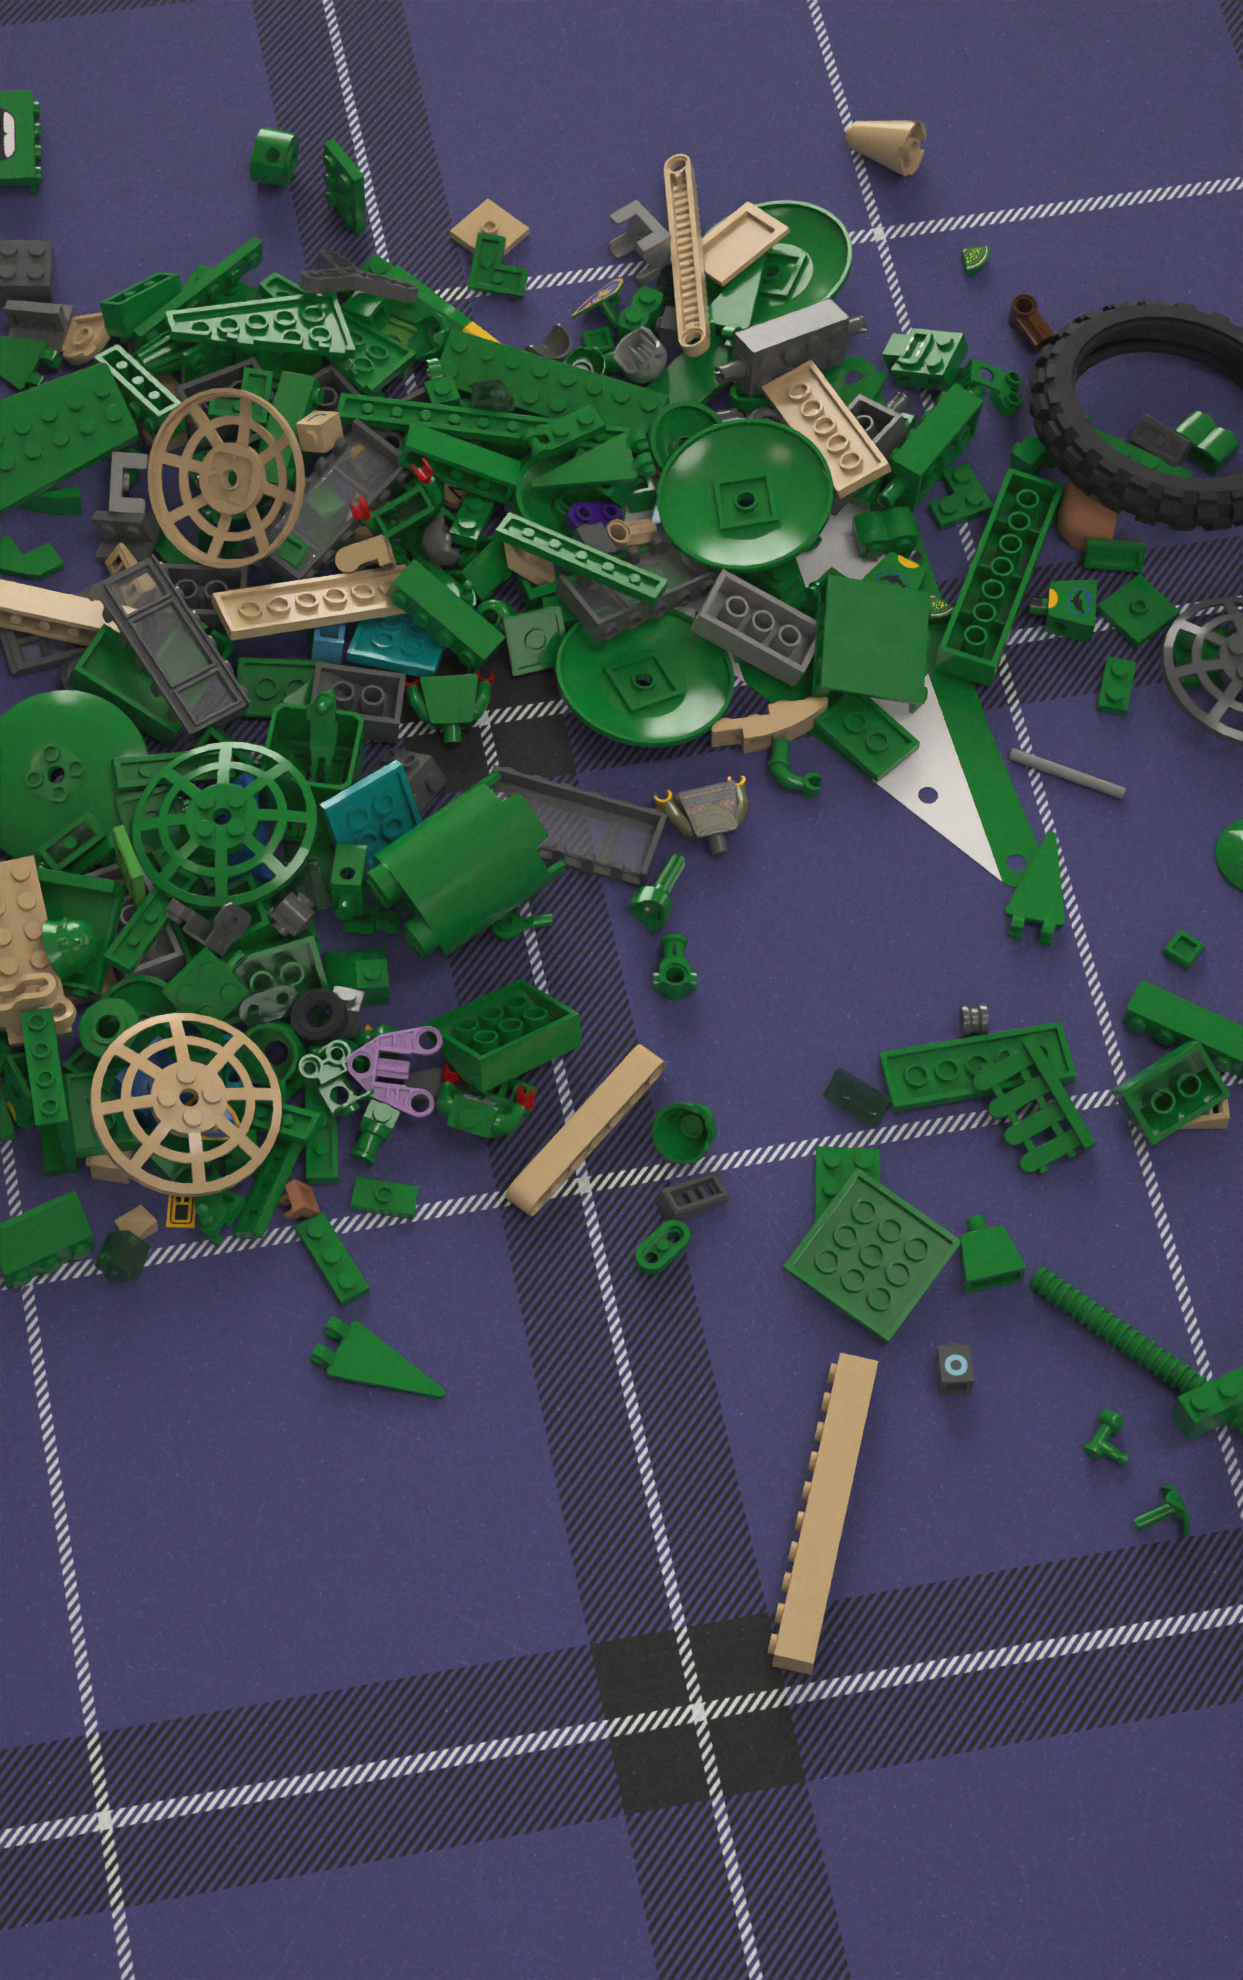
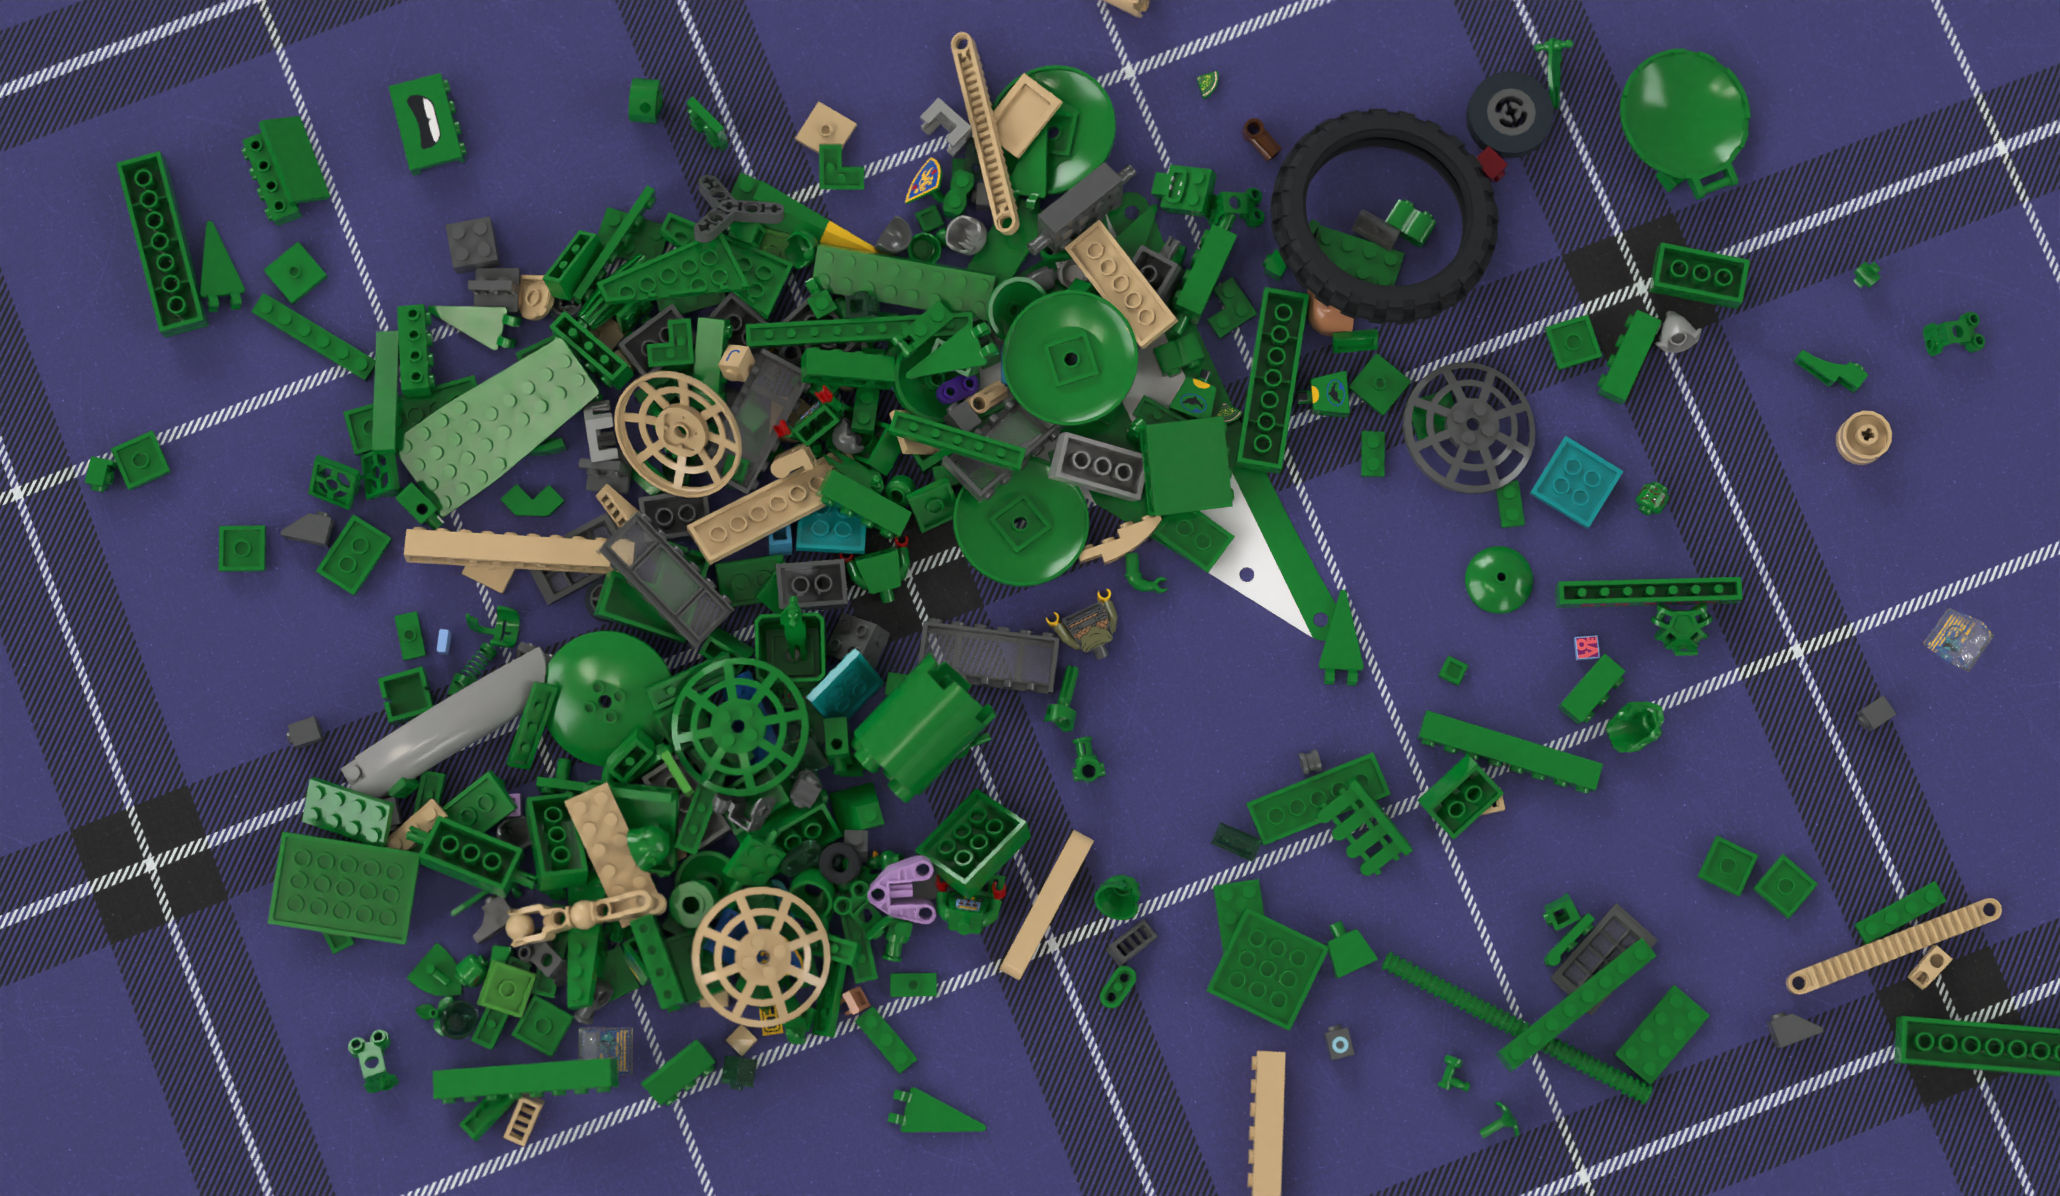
camera: 10 degrees left, 20 degrees up
(1067, 773) = (1347, 537): light grey bar -> none

